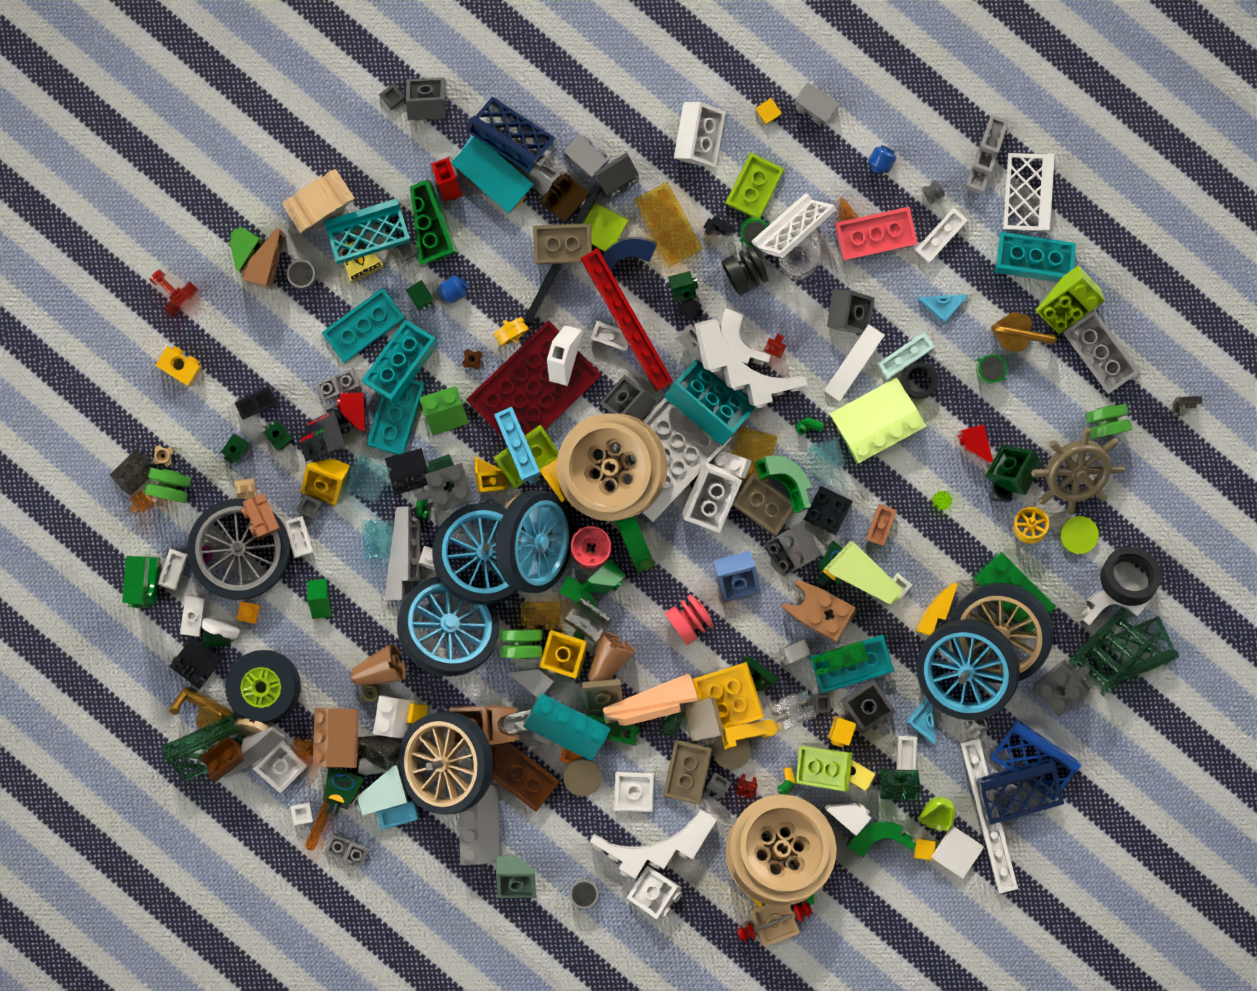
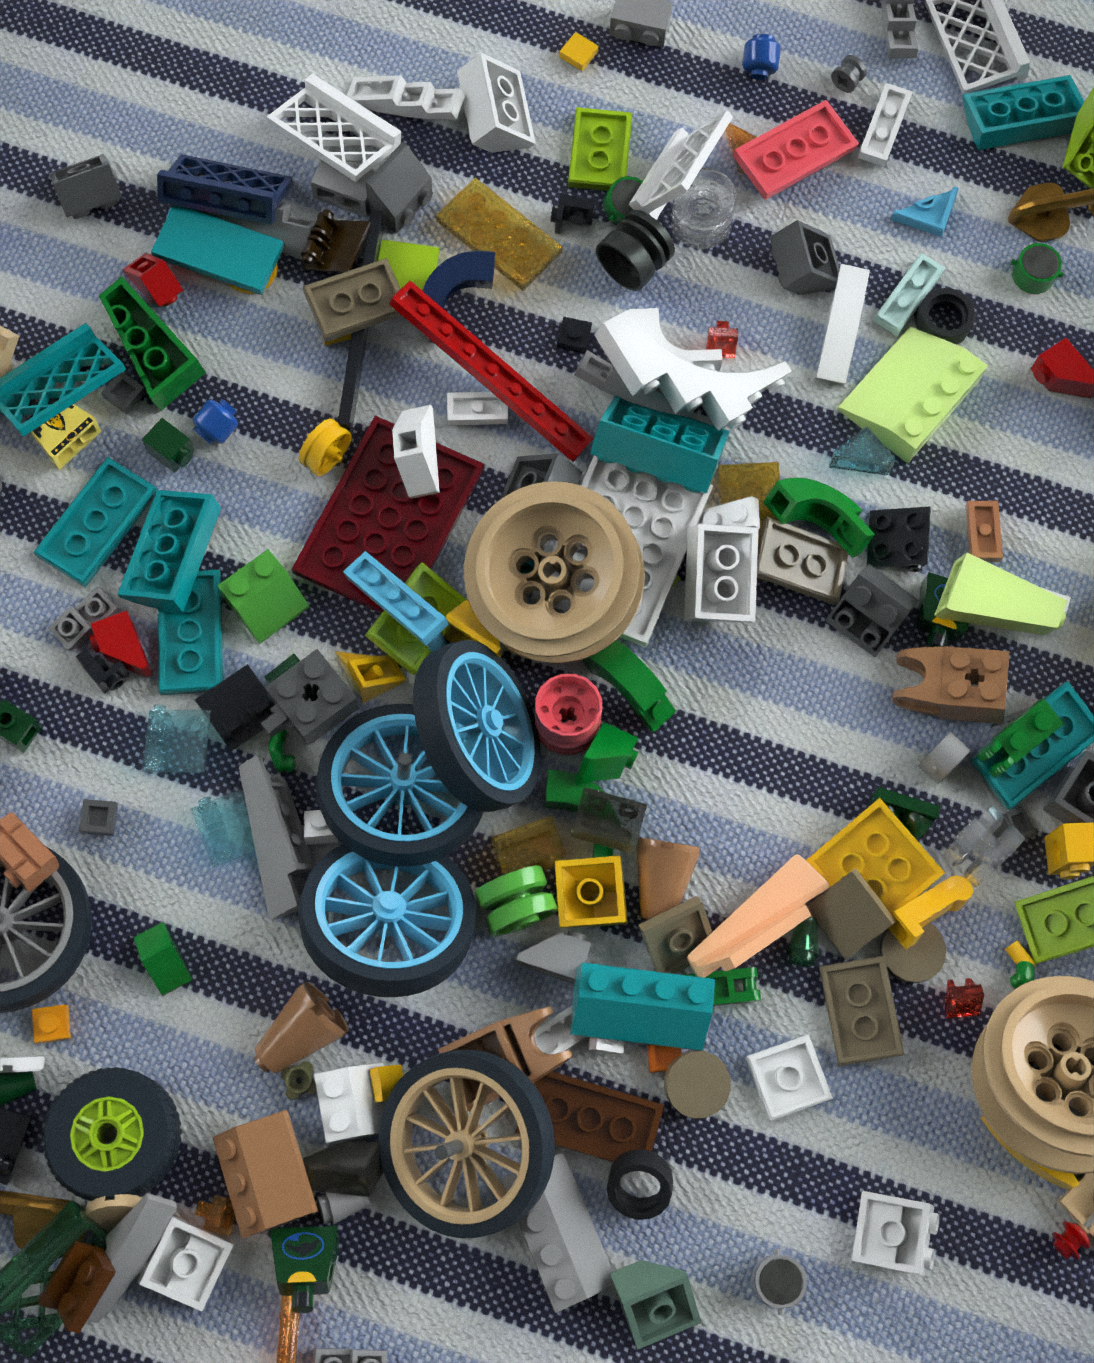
camera: 25 degrees left, 15 degrees down
(298, 537) = (96, 871): white plate -> none
(302, 813) = (251, 1333): white plate -> none
(321, 437) = (84, 701): black slope -> none
(325, 480) = (109, 766): yellow slope -> none
(383, 793) = (378, 1241): light aqua slope -> none
(392, 96) = (34, 200): dark grey tile -> none
(398, 815) = (416, 1270): medium azure tile -> none
(473, 364) = (280, 519): reddish brown plate -> none
(523, 826) = (633, 1206): none -> black tyre
(602, 108) = (347, 117): none -> white fence
(644, 108) = (405, 99): none -> white slope
(683, 286) = (554, 304): dark green brick -> none
(685, 841) = (907, 1124): white arch -> none
(689, 619) = (764, 767): coral wheel -> none
(718, 785) = (919, 1012): dark grey tile -> none
(737, 576) = (807, 679): medium blue slope -> none
(807, 424) = (814, 430): green arm -> none
(941, 500) = (1052, 468): clear neon green tile -> none

